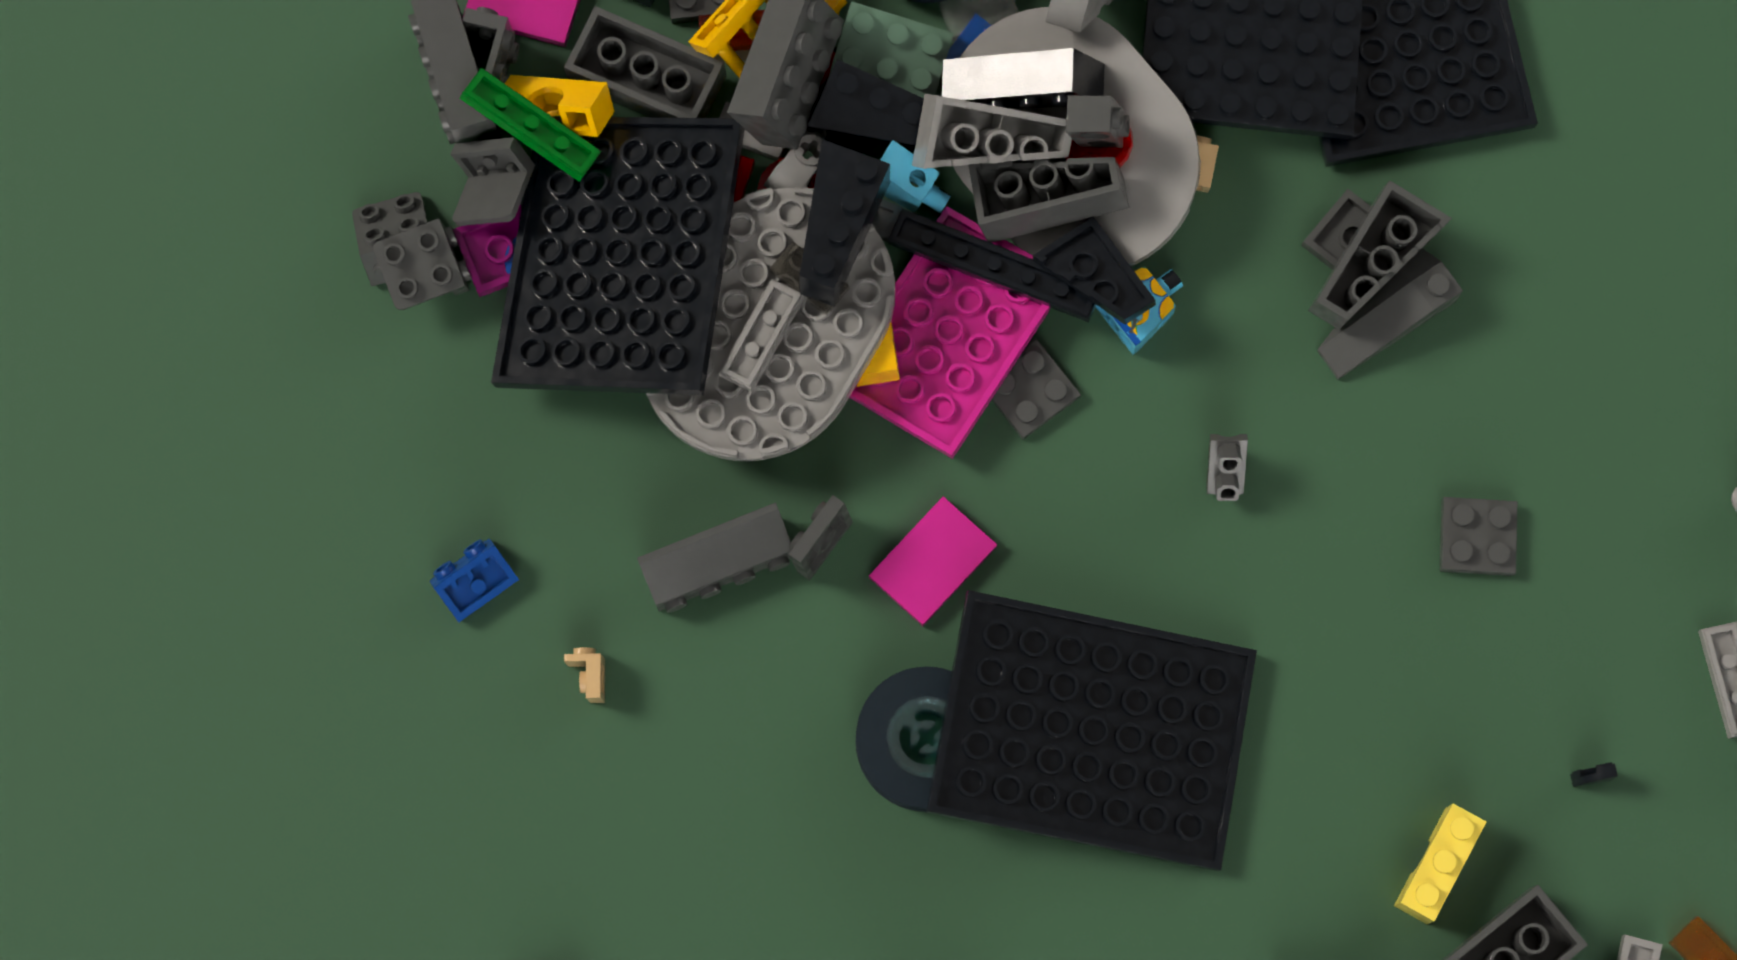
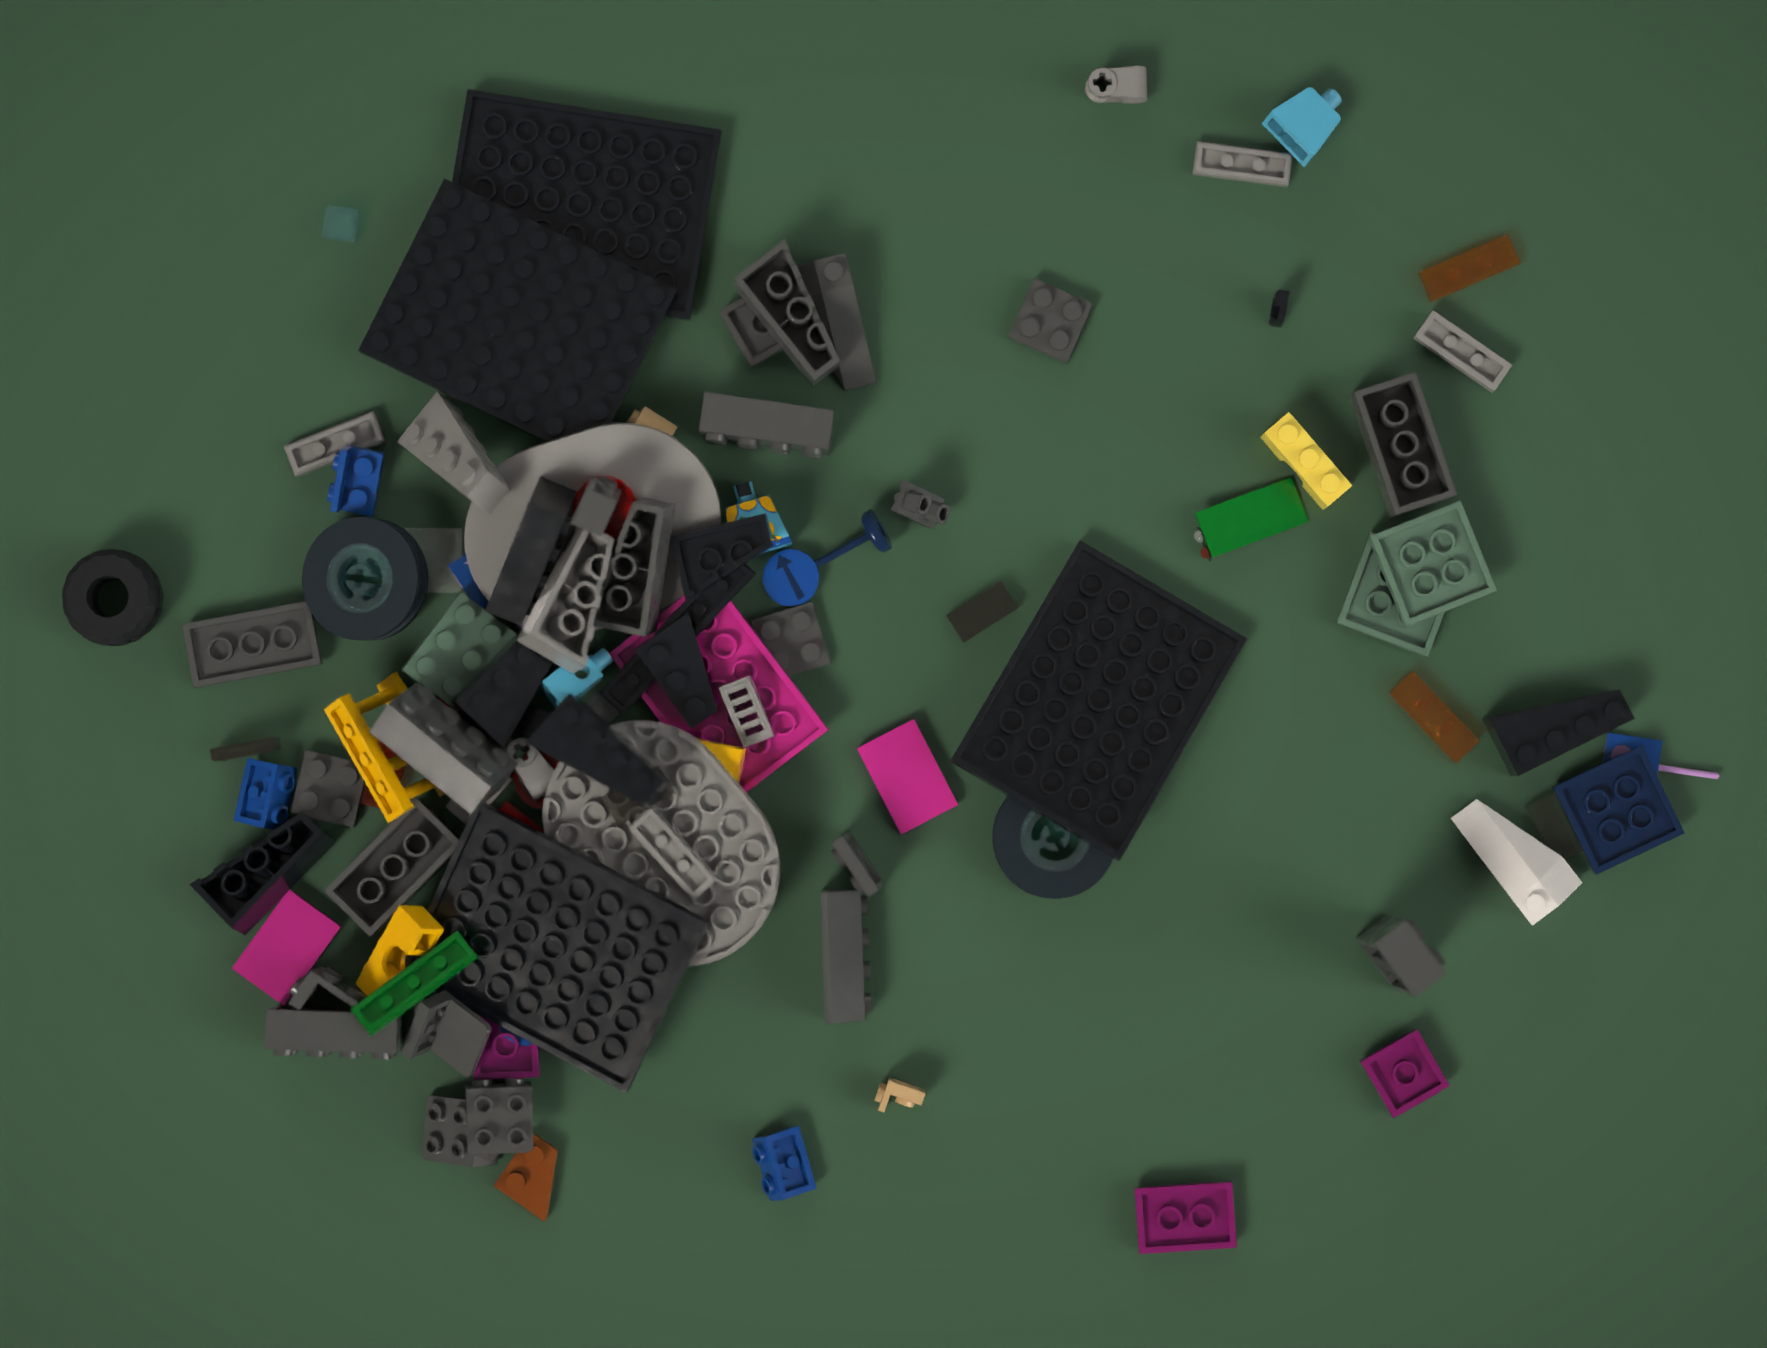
camera: 70 degrees left, 10 degrees up
(371, 324) = (531, 1177): none -> dark orange wing
(940, 344) = (748, 683): none -> light grey slope
(957, 278) = (679, 669): none -> black wing
(1101, 366) = (794, 576): none -> piece
(1138, 576) = (982, 612): none -> clear smoke tile
(1249, 277) = (766, 424): none -> dark grey brick
(1352, 827) = (1249, 518): none -> green piece

